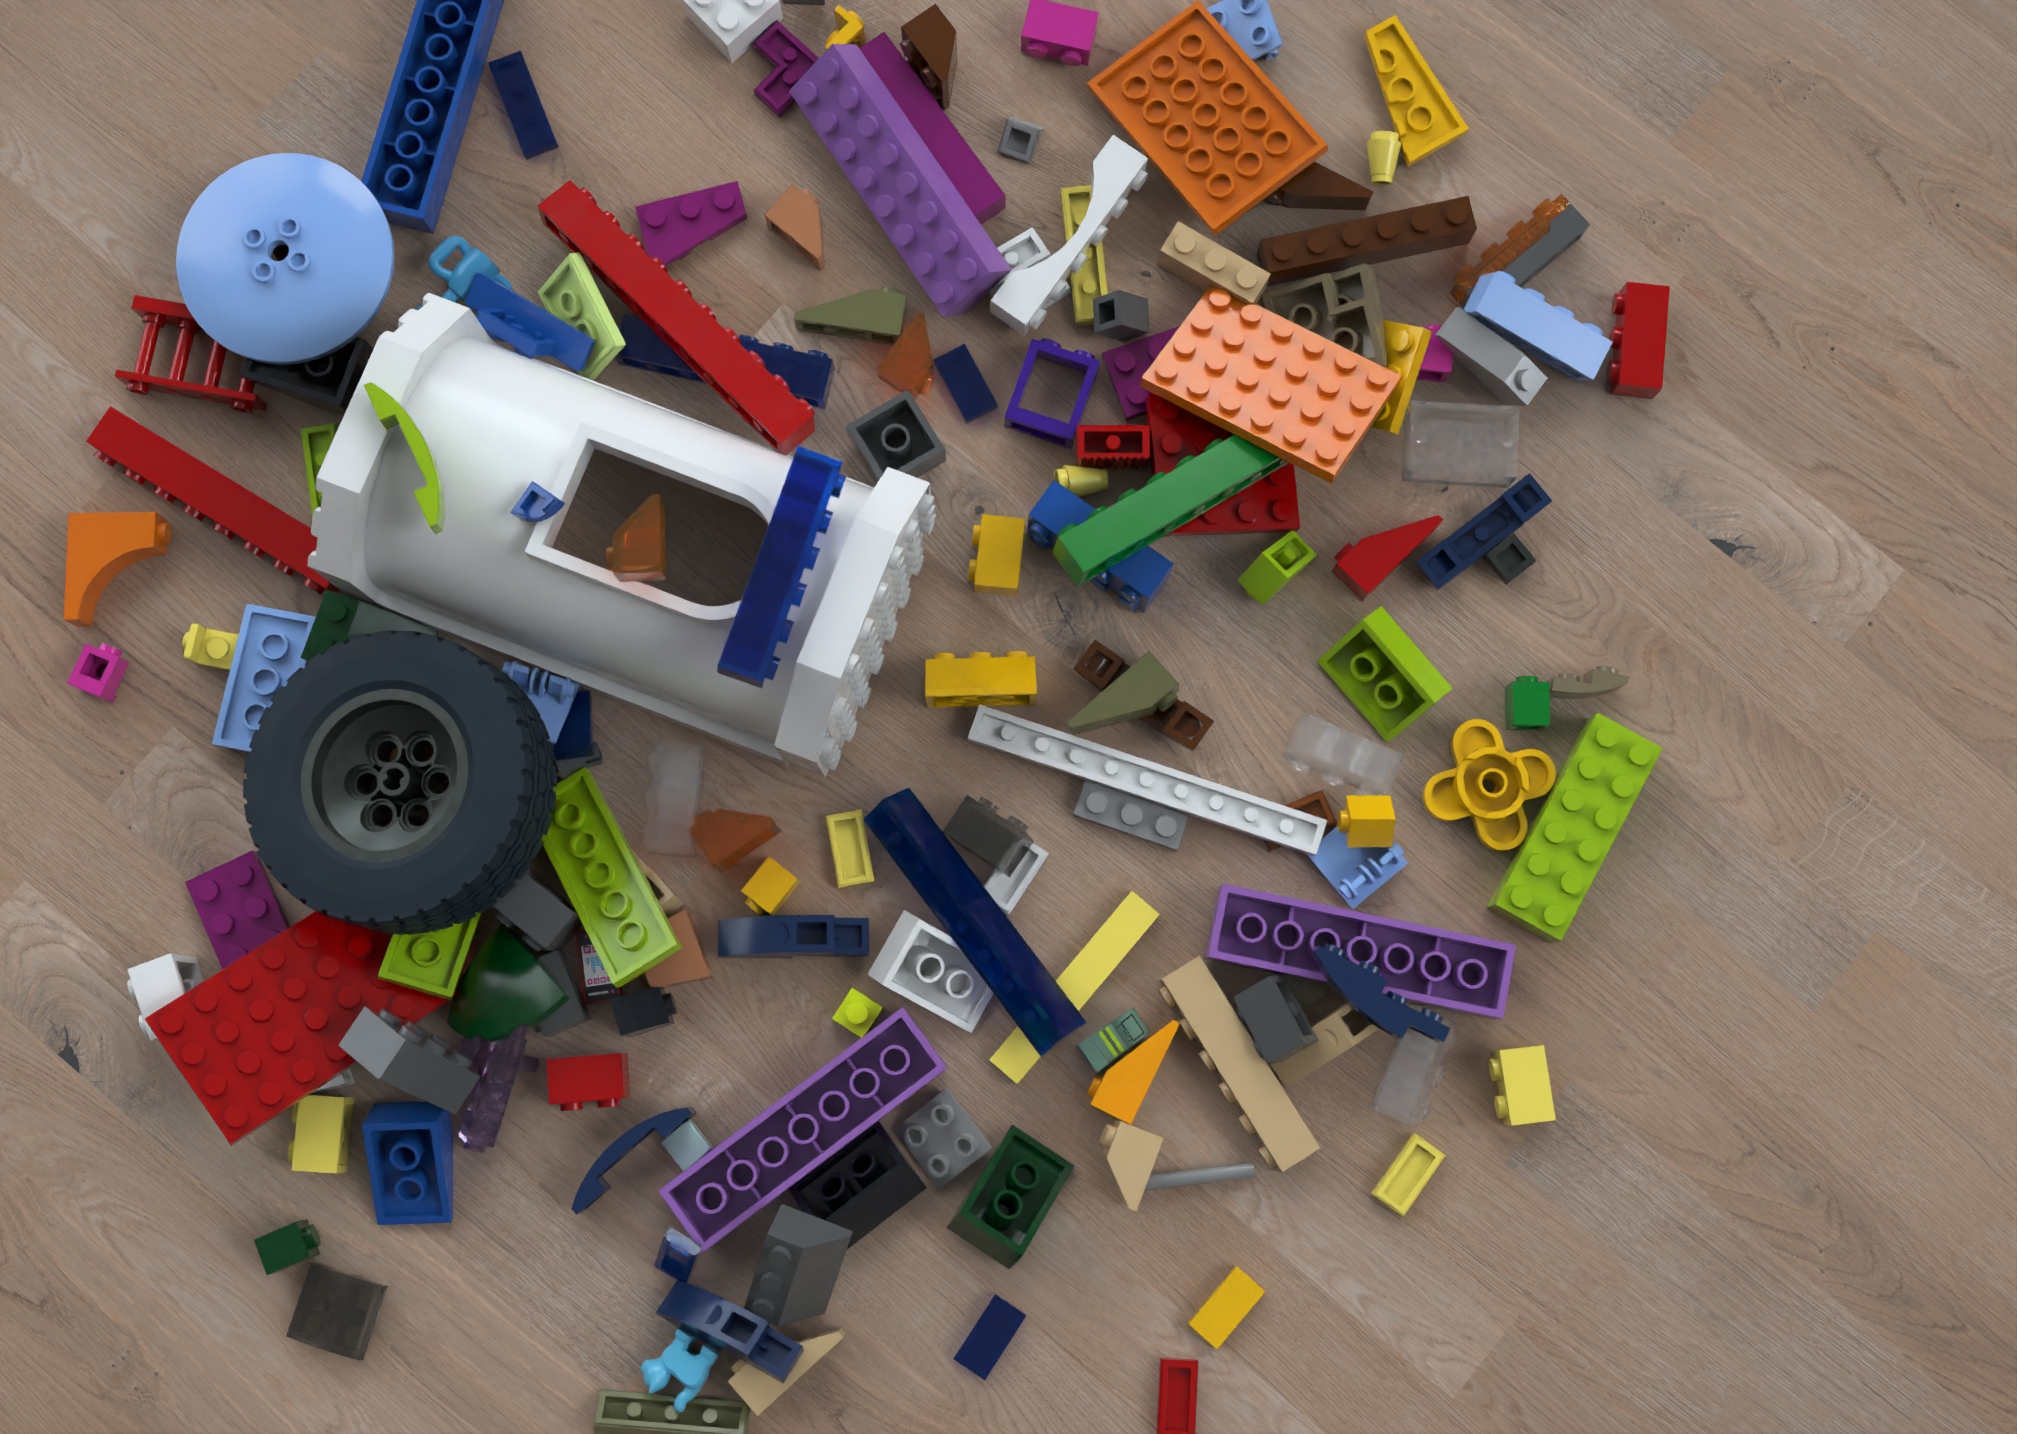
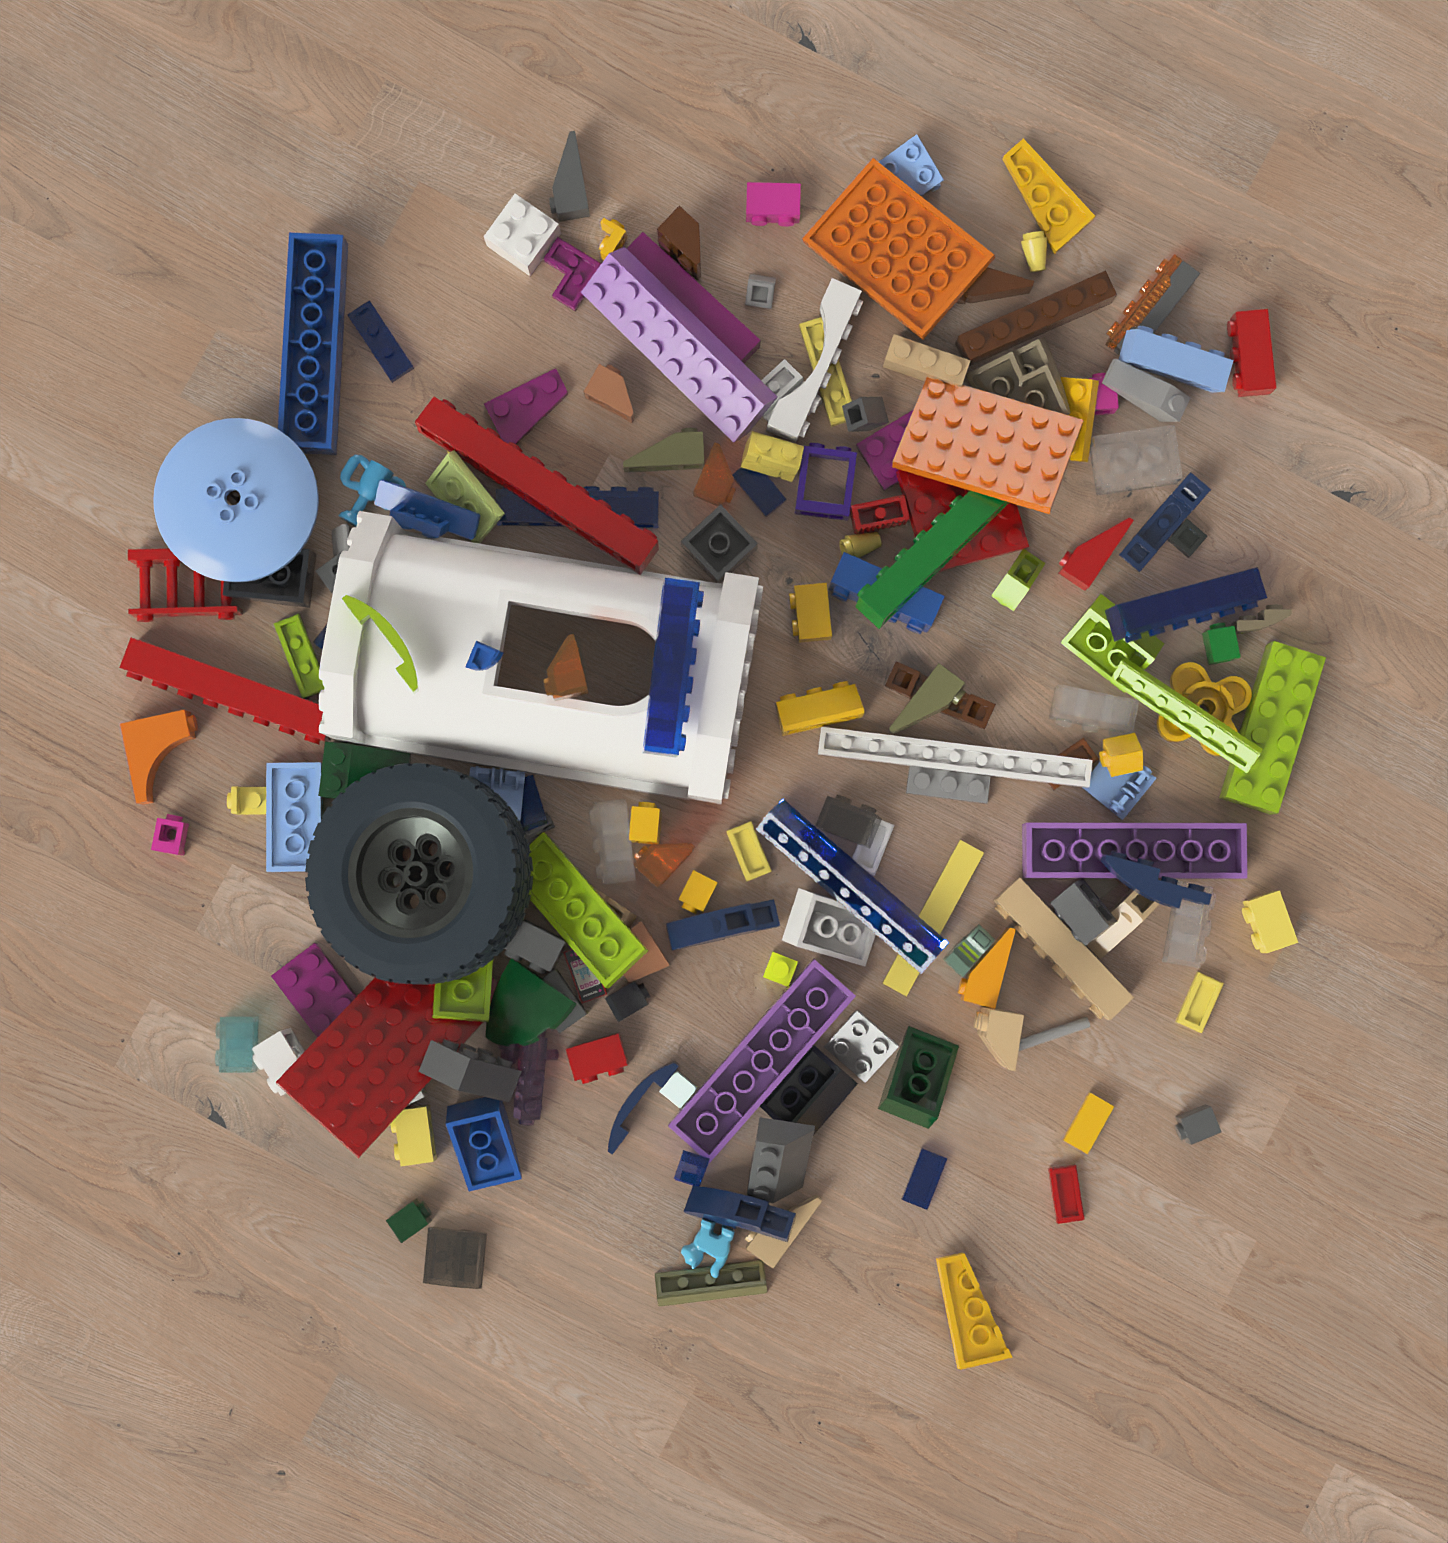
camera: 10 degrees left, 5 degrees up
(115, 951) = (237, 1039): none -> clear light blue brick
(717, 780) = (645, 823): none -> yellow brick
(989, 344) = (772, 456): none -> light yellow brick
(1372, 1340) = (1197, 1124): none -> dark grey brick
(1463, 786) = (1186, 715): none -> tile
(1489, 641) = (1186, 604): none -> clear blue brick

